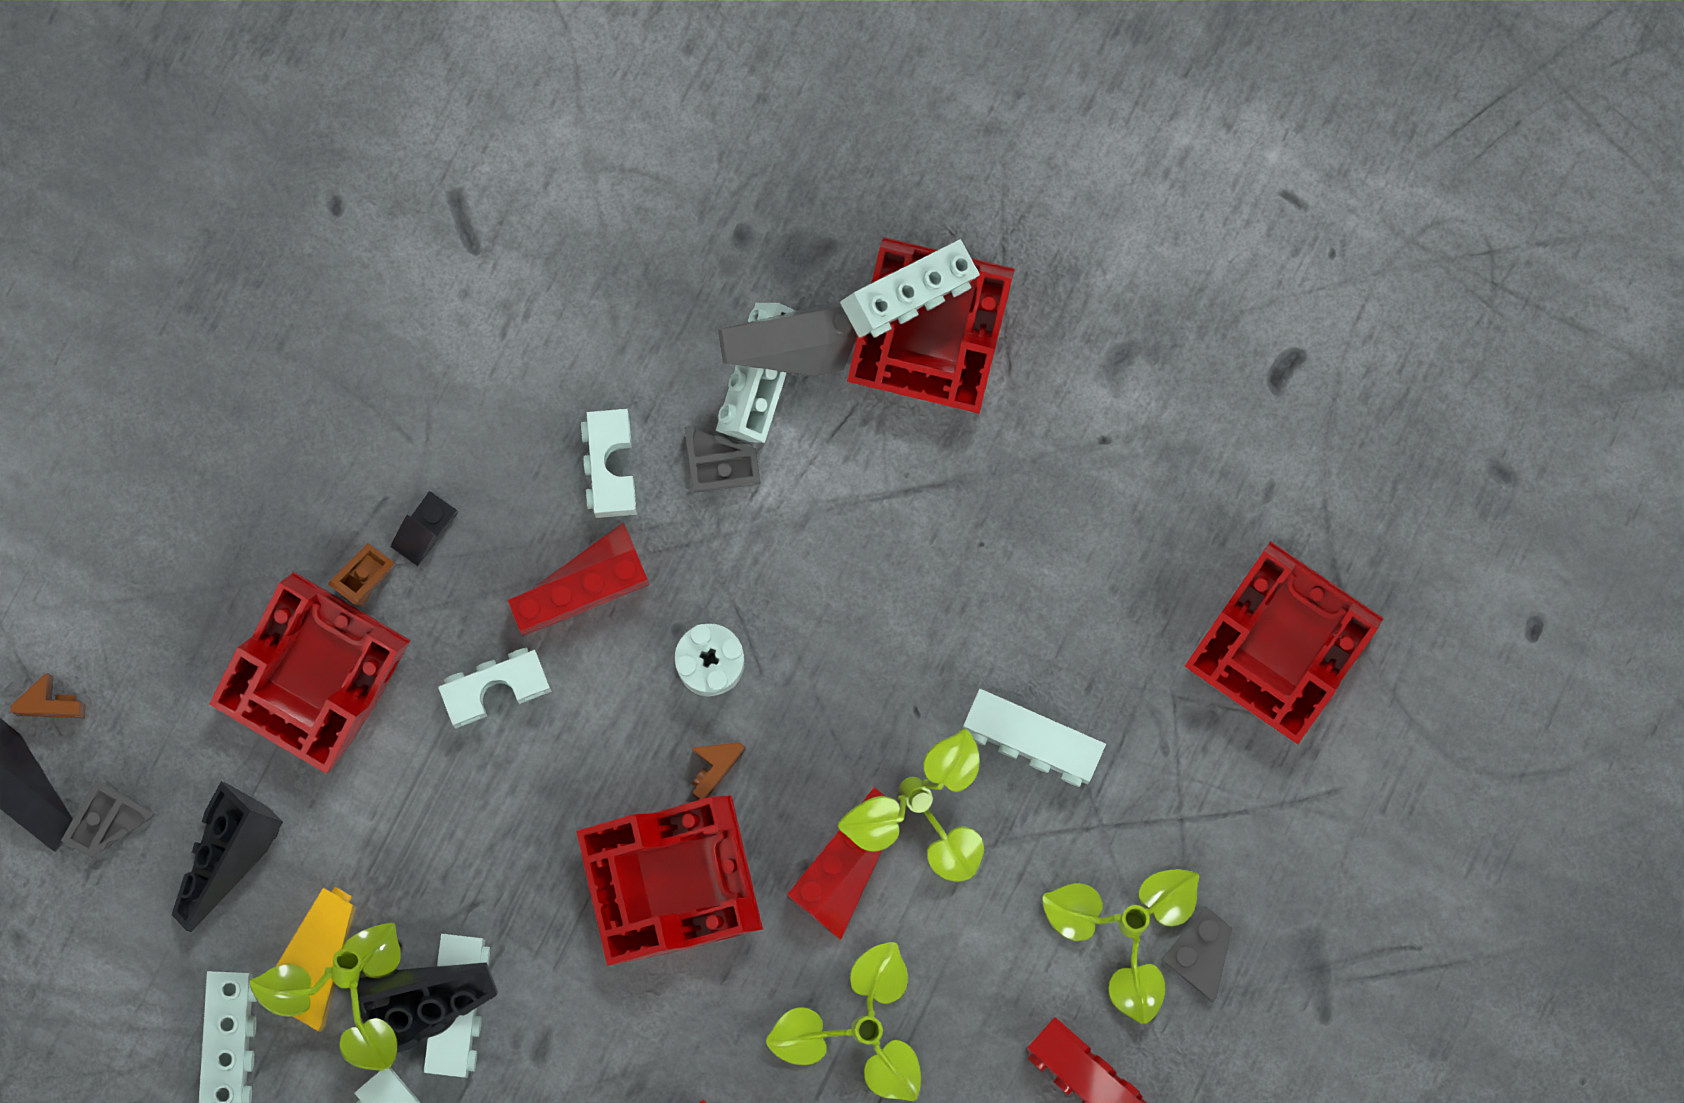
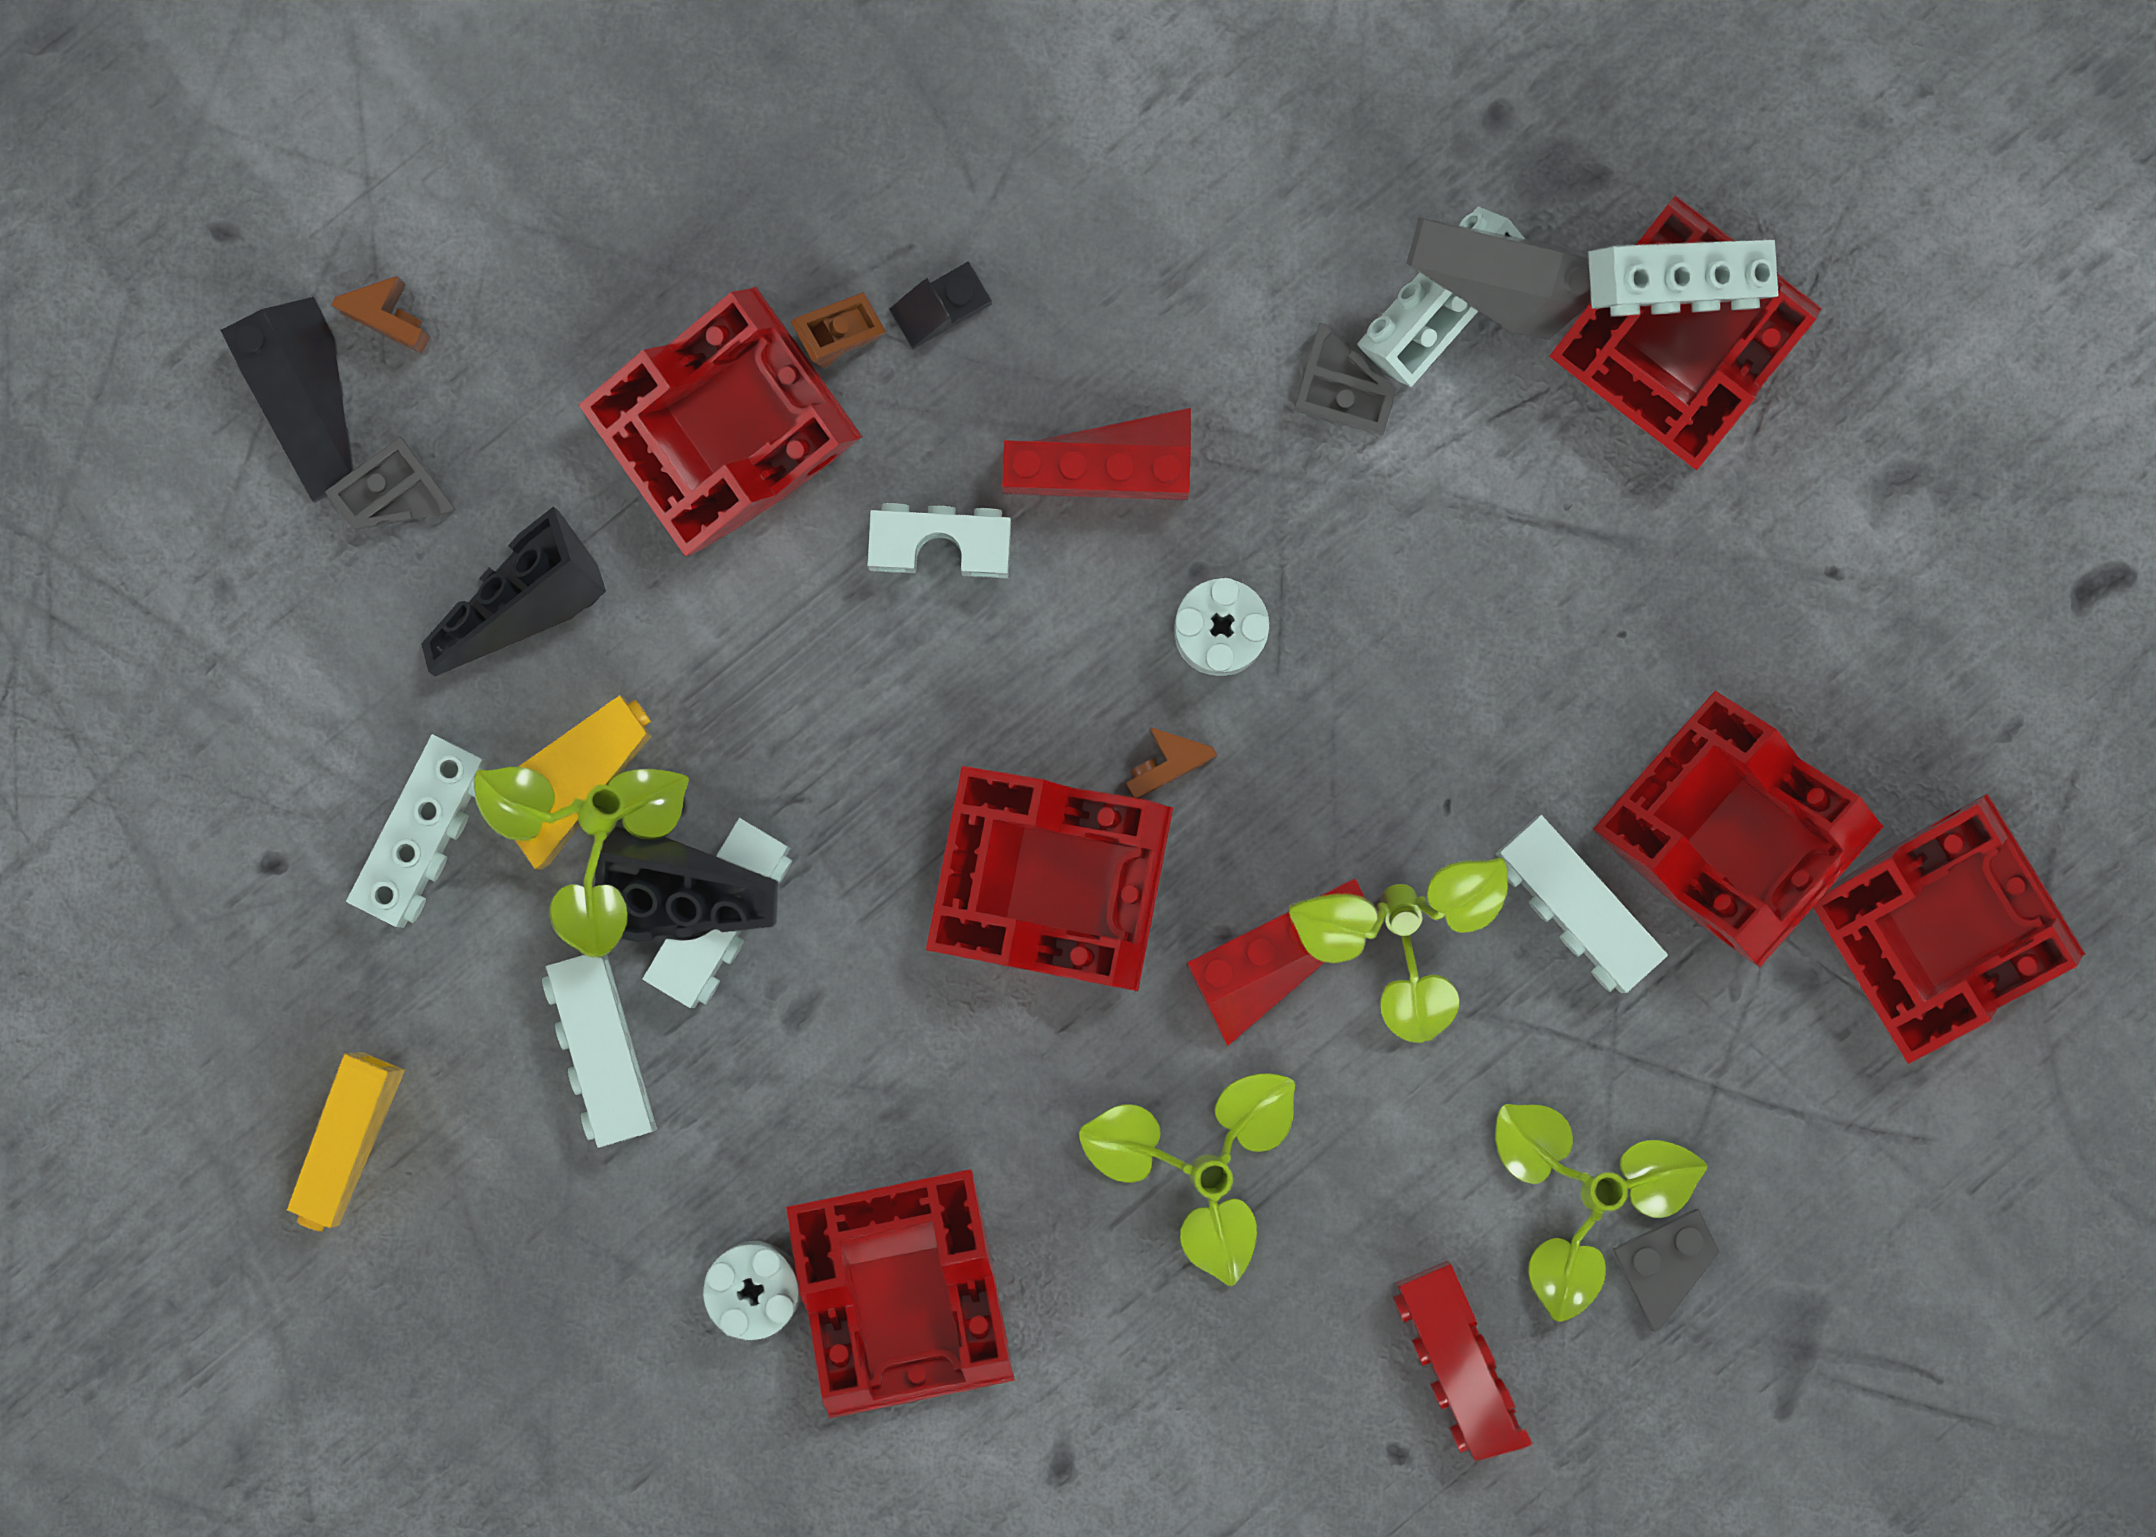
camera: 25 degrees right, 5 degrees up
(609, 493) = (1218, 287): light aqua arch -> none
(1114, 638) = (1738, 828): none -> red slope

